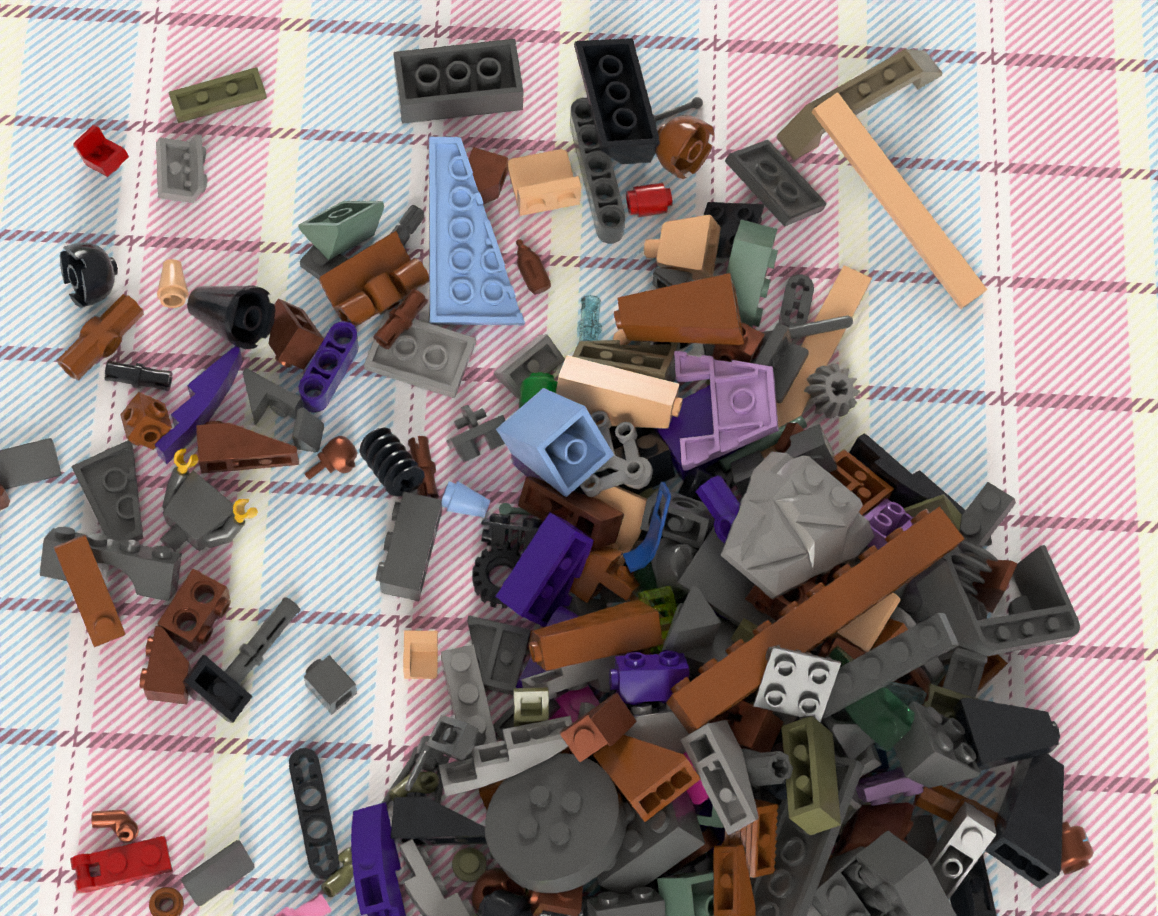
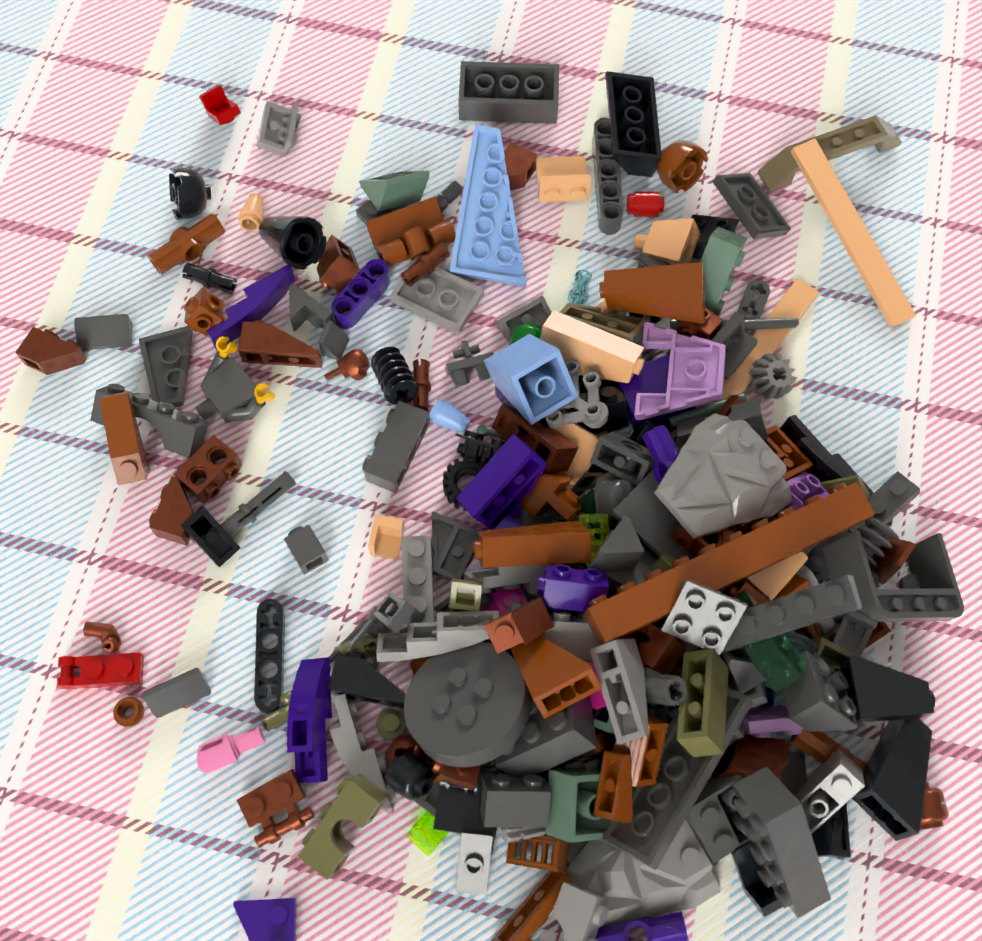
camera: 15 degrees right, 0 degrees up
(217, 95) = (320, 78): olive plate -> none
(532, 269) = (540, 244): copper piece -> none
(647, 549) = (590, 482): blue piece -> none
(696, 103) = (696, 138): dark grey hinge -> none

